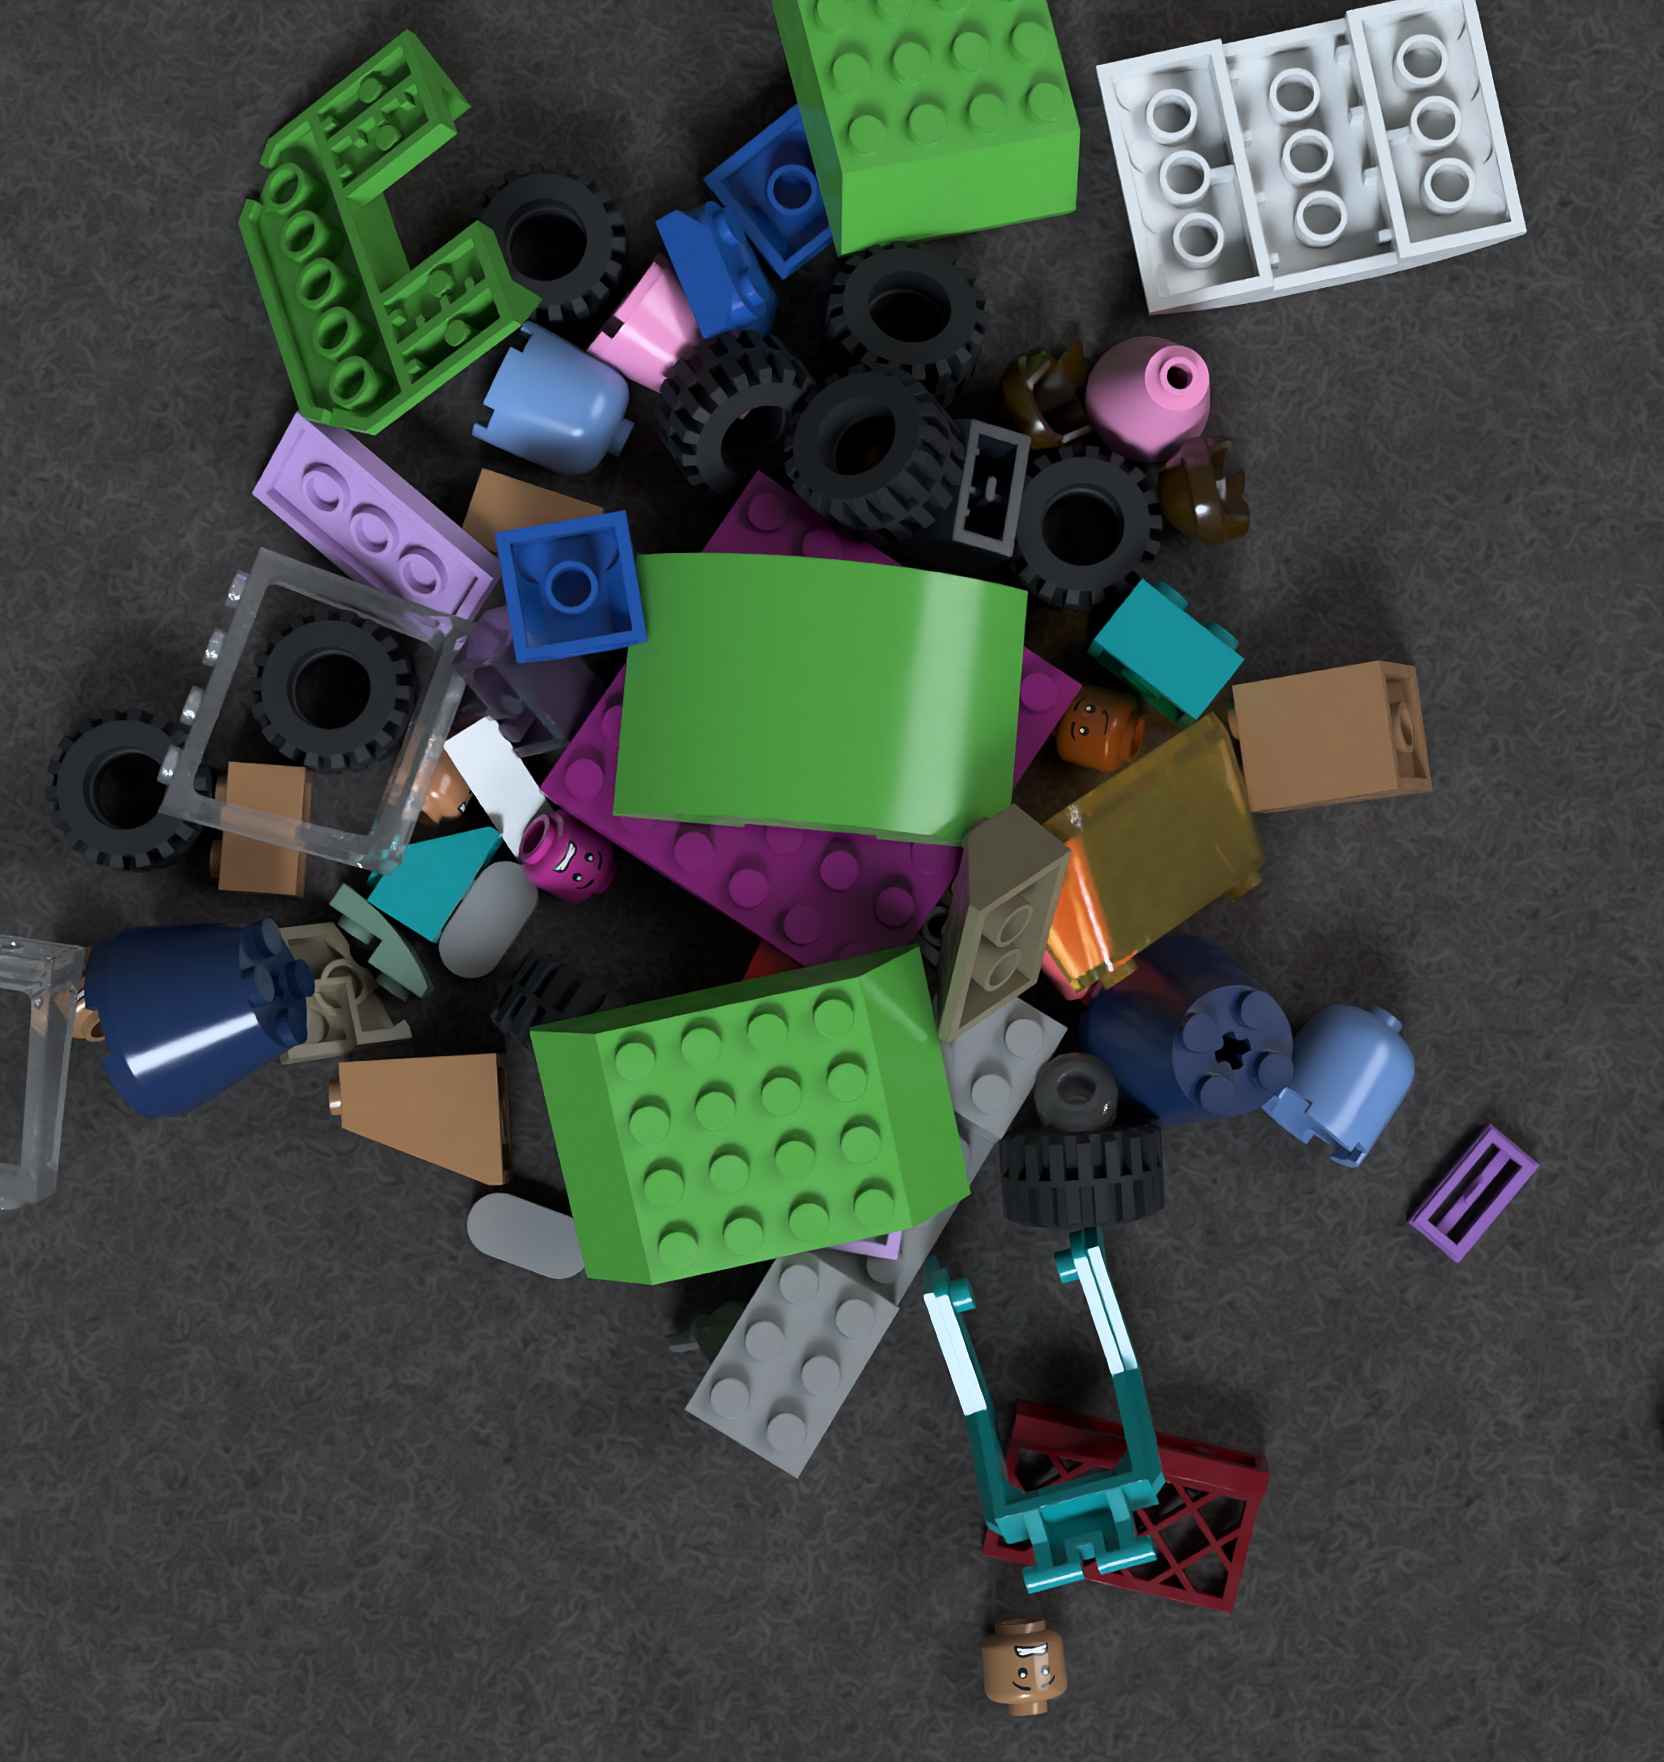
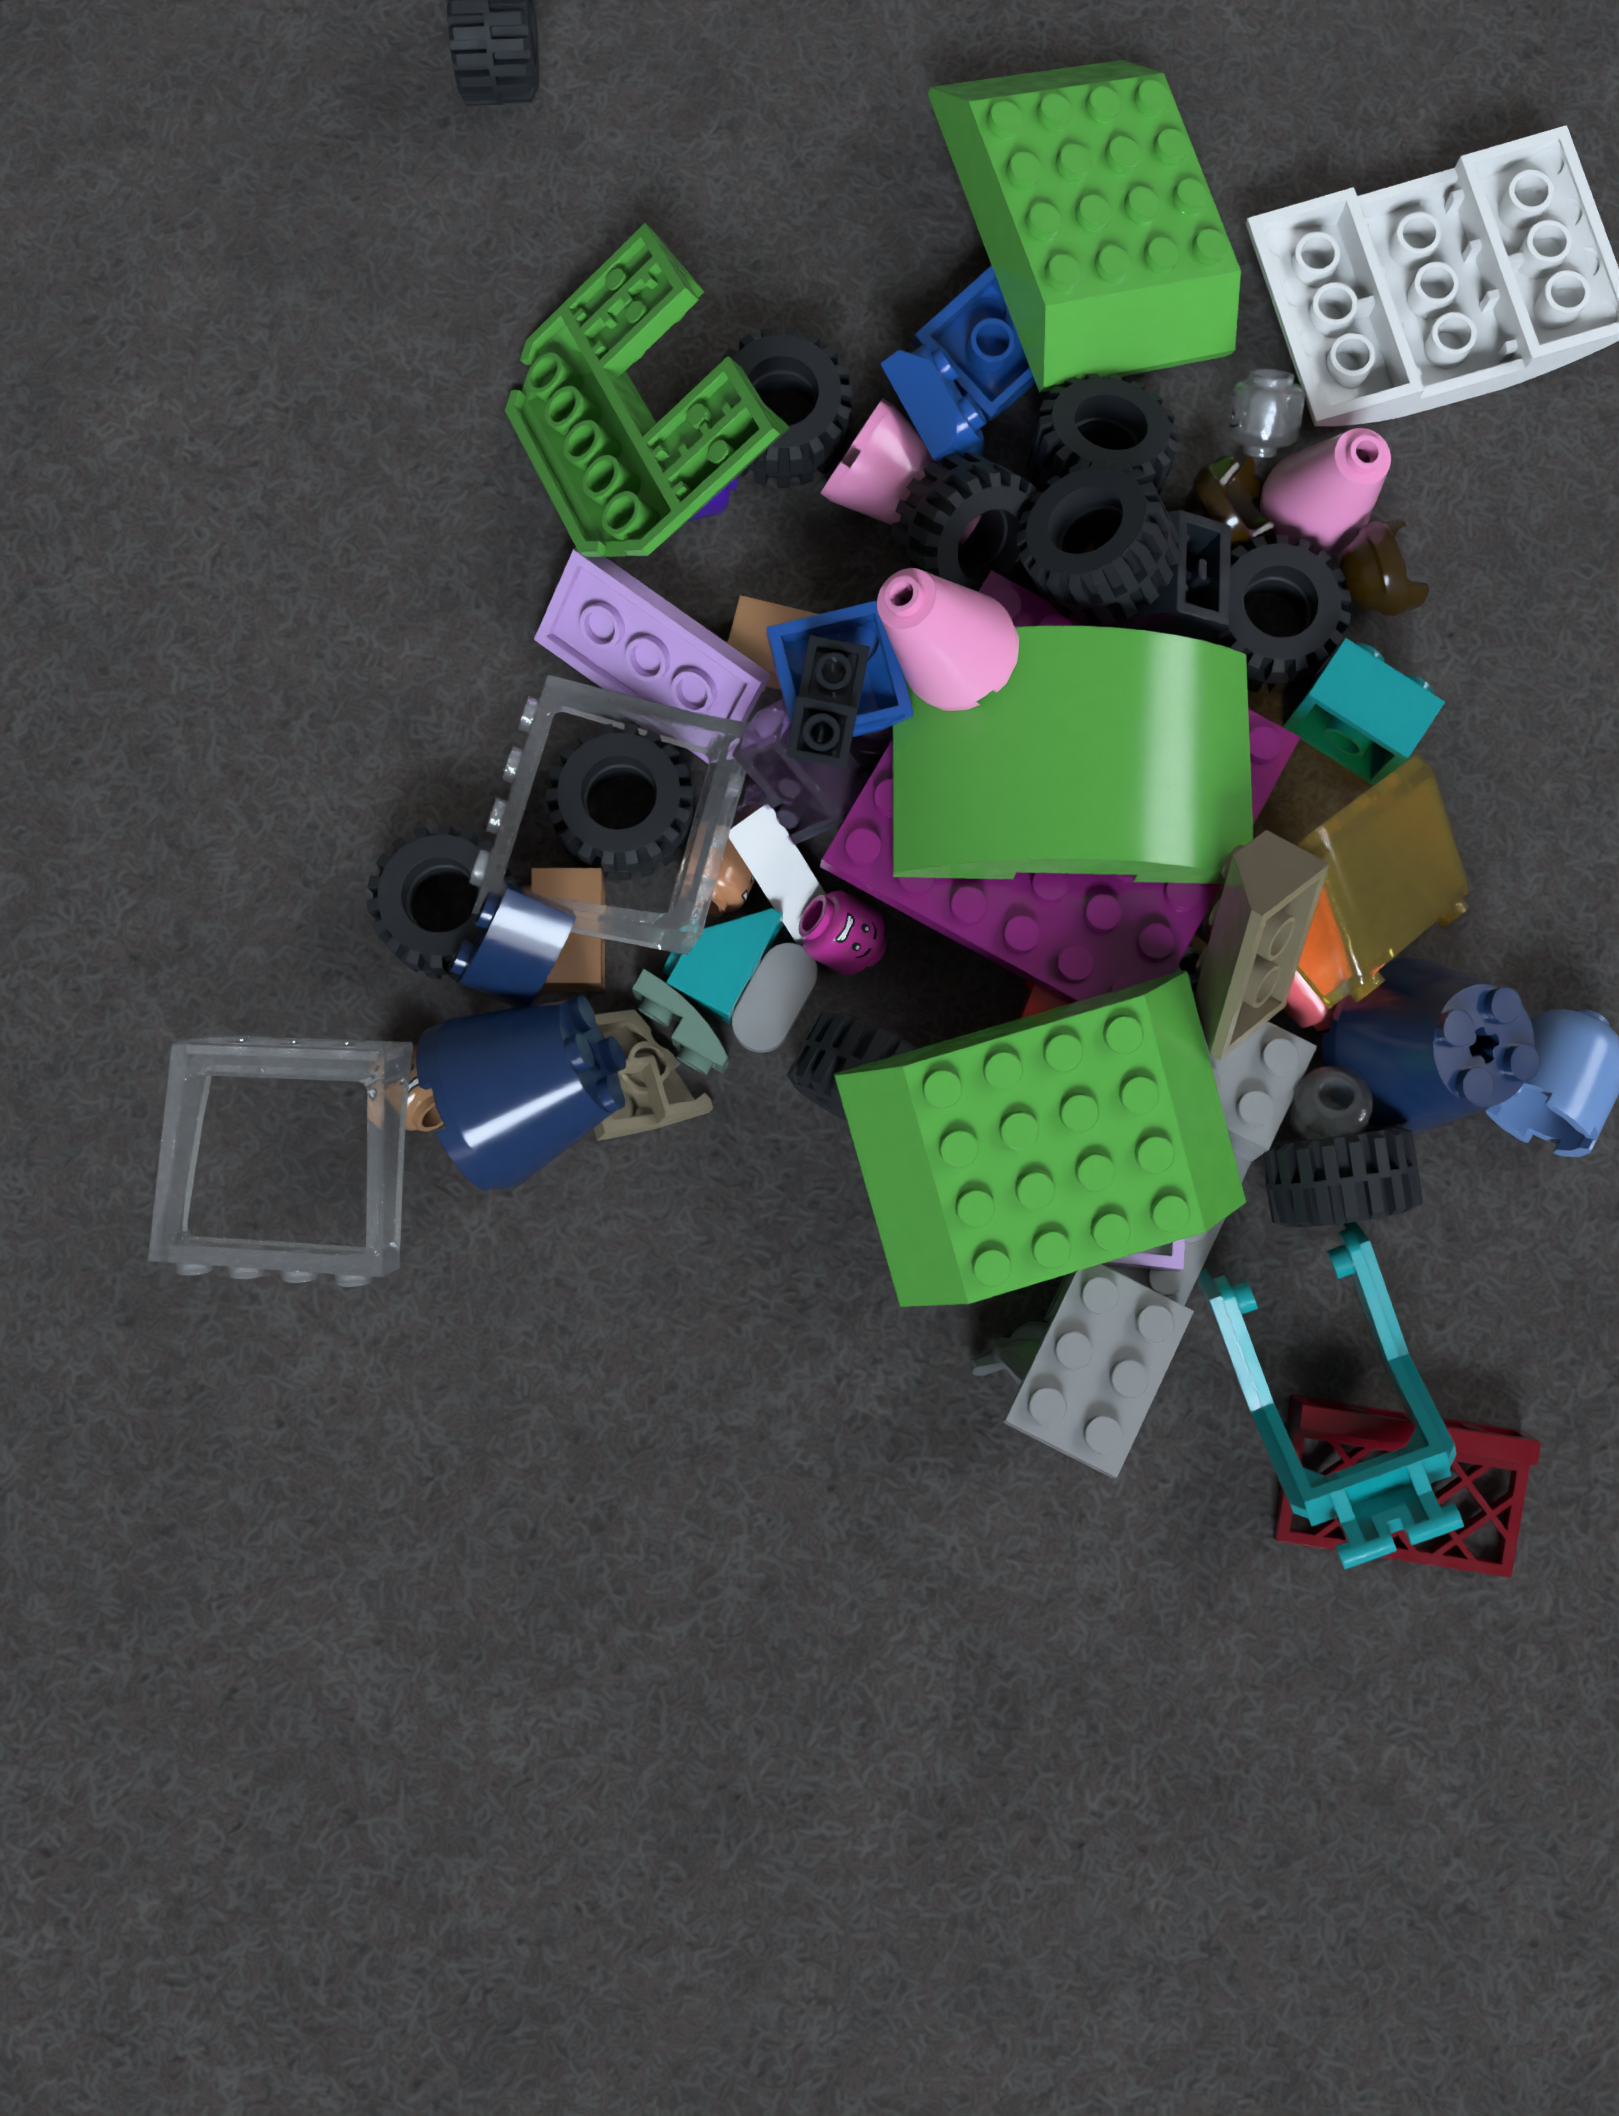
camera: 10 degrees left, 5 degrees down
(198, 856) = (513, 946): none -> dark blue brick
(432, 1108) = (740, 1164): medium nougat slope -> none
(526, 1235) = (835, 1279): light grey tile -> none
(553, 624) = (828, 701): none -> black slope
(556, 405) = (801, 536): medium blue cylinder -> none
(686, 568) = (947, 638): none -> bright pink cone
(1023, 1665) = (1328, 1641): medium nougat head -> none
(1097, 292) = (1266, 412): none -> clear head
(1100, 728) = (1309, 787): dark orange head -> none
(1331, 737) = (1513, 776): medium nougat slope -> none

